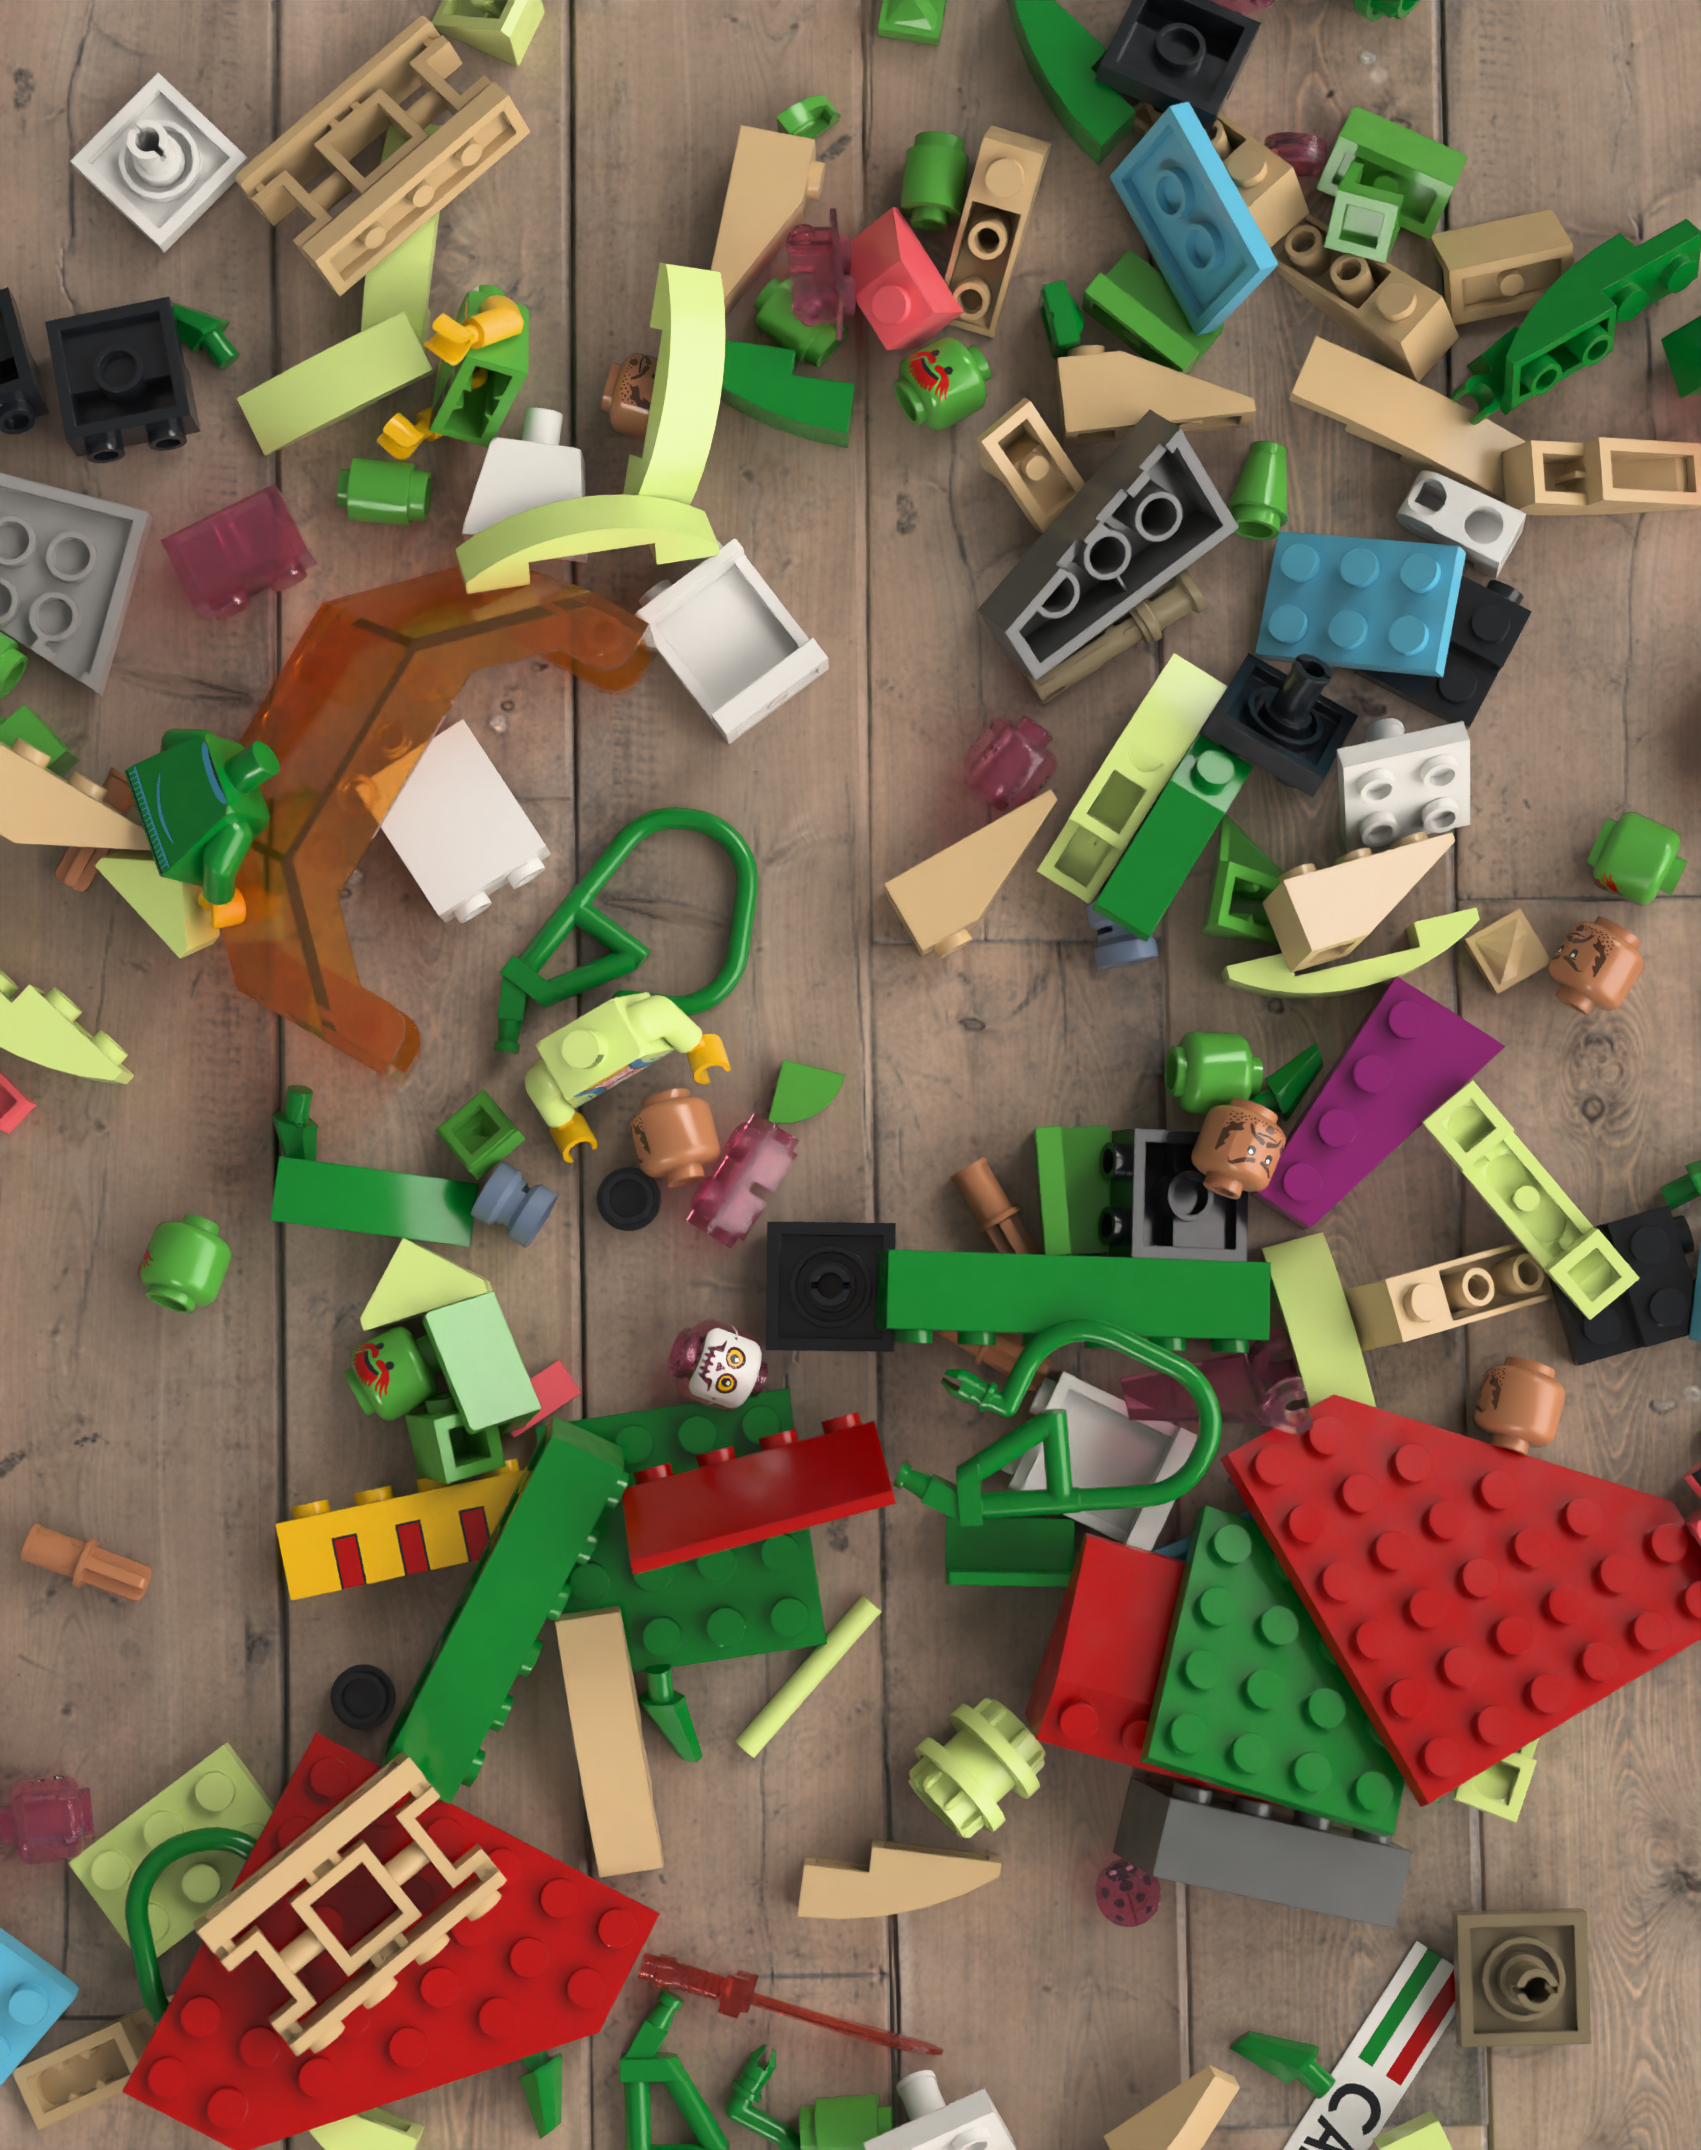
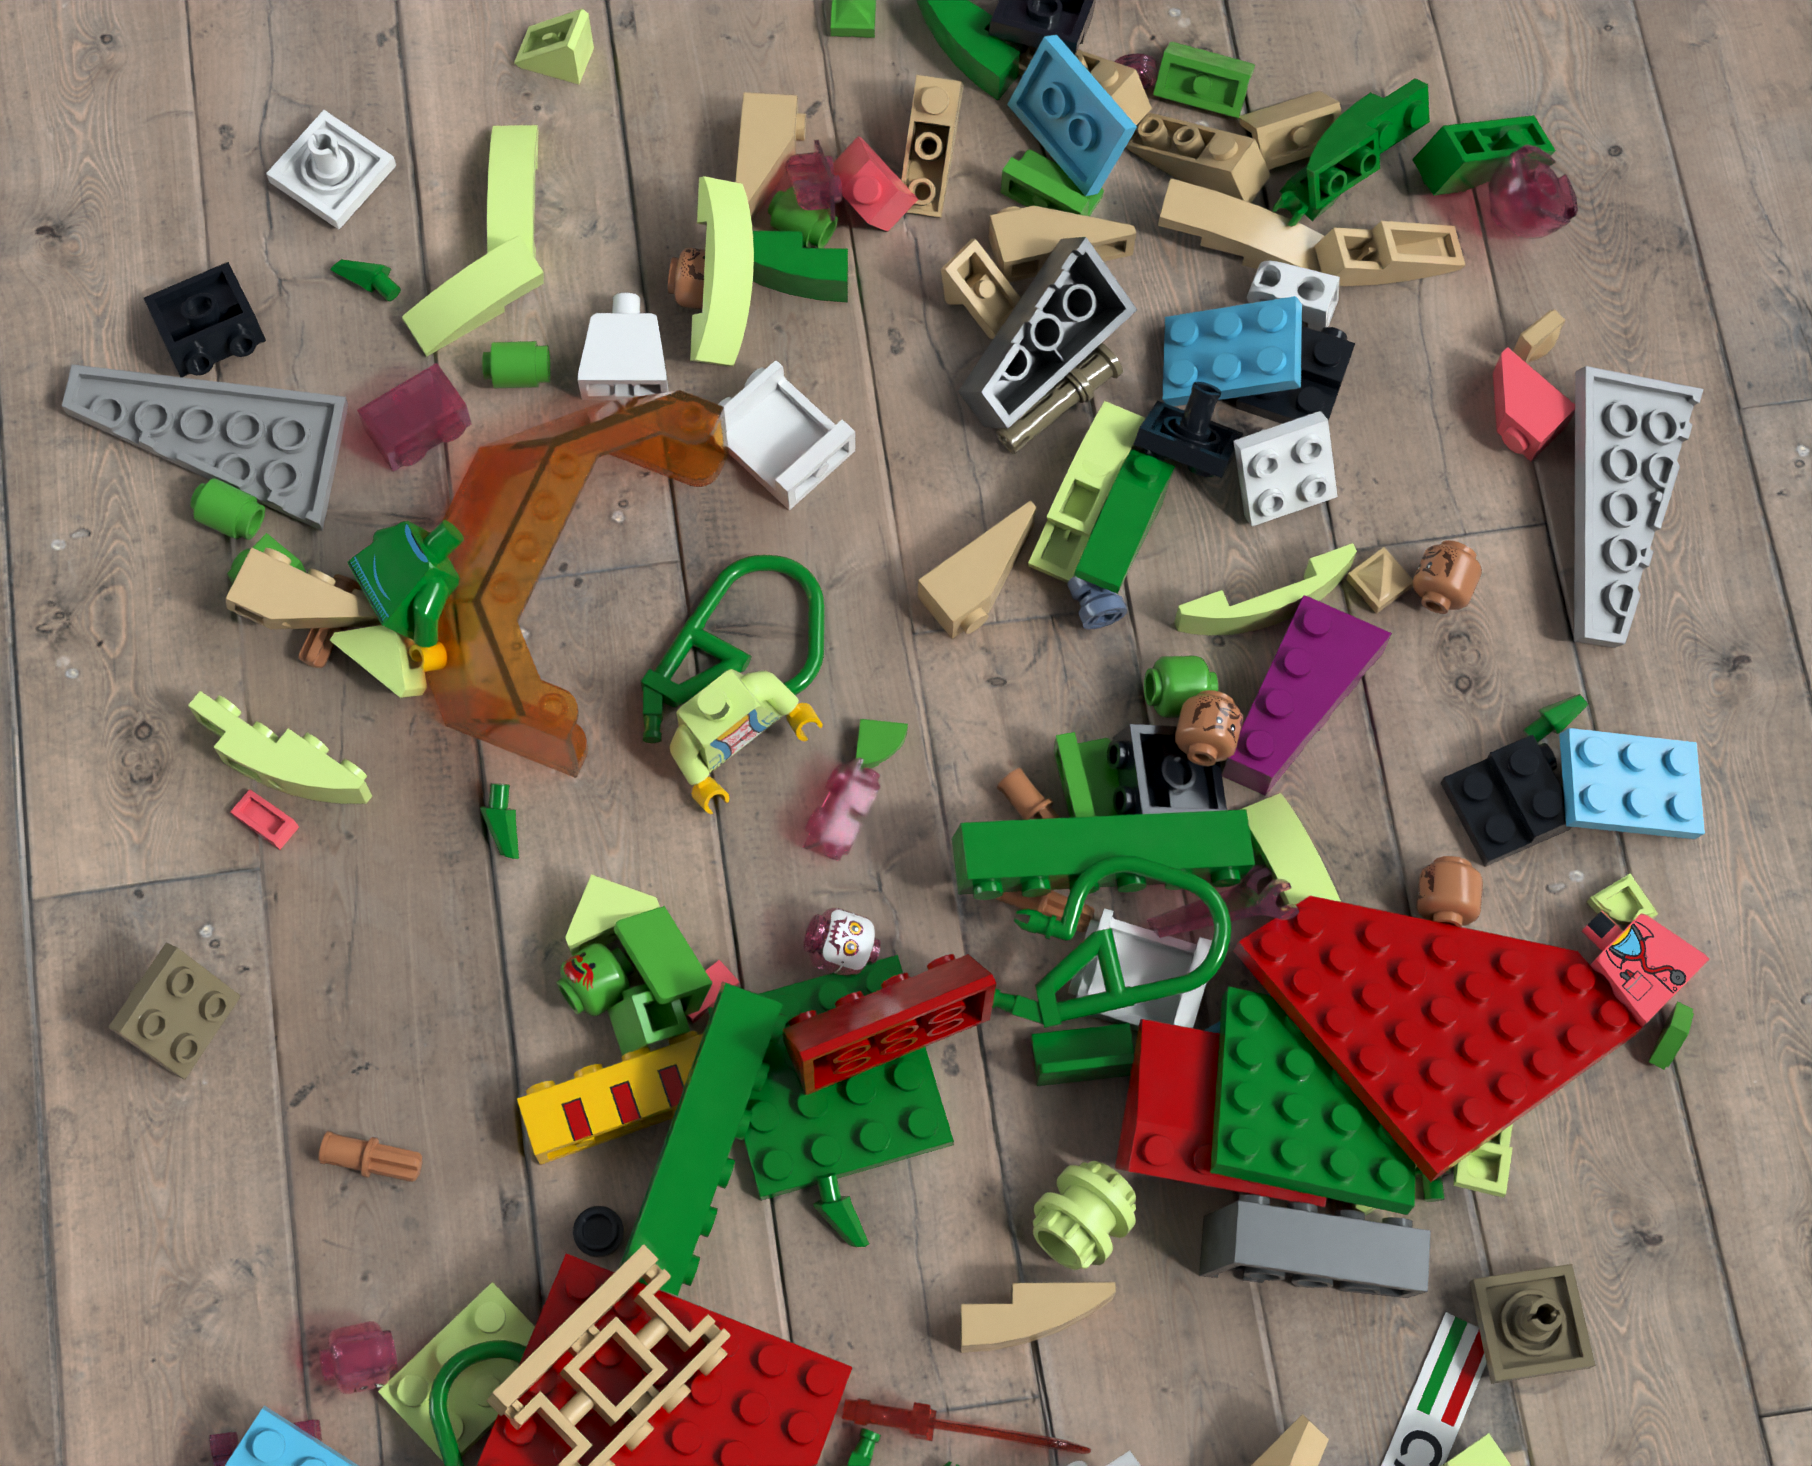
camera: 15 degrees left, 15 degrees down
(122, 380) = (318, 311): black plate -> none
(185, 1264) = (425, 921): bright green head -> none
(374, 1201) = (563, 856): green slope -> none
(410, 182) = (500, 100): tan fence -> none
(462, 828) = (601, 583): white panel -> none
(477, 377) = (574, 273): torso -> none
(480, 1134) = (640, 800): bright green tile -> none
(512, 1203) = (667, 844): sand blue wheel -> none
(582, 526) = (612, 381): yellowish green slope -> none
(609, 1741) = (796, 1235): tan slope -> none
(628, 1199) = (757, 834): black plate -> none
(675, 1137) = (787, 781): nougat head -> none
(808, 117) = (790, 84): bright green tile -> none
(808, 1676) = (942, 1170): yellowish green bar -> none
(825, 1286) = (915, 878): black plate -> none
(934, 181) = (884, 117): bright green brick -> none
(942, 383) = (909, 246): bright green head -> none
(1010, 762) = (996, 489): clear pink head -> none
(1060, 318) = (986, 193): green tile -> none
(1127, 1894) = (1216, 1303): clear pink tile -> none
(1238, 887) = (1186, 566): bright green slope -> none
(1261, 492) = (1149, 293): bright green cone -> none
(1285, 2060) = (1361, 1416): green bar -> none
(1290, 1083) = (1242, 685): green bar -> none
(1335, 908) = (1251, 553): slope -> none
(1363, 218) = (1191, 100): bright green panel -> none
(1446, 1295) = (1380, 822): tan slope -> none
(1529, 1200) = (1427, 742): yellowish green slope -> none
(1636, 858) = (1462, 501): bright green head -> none

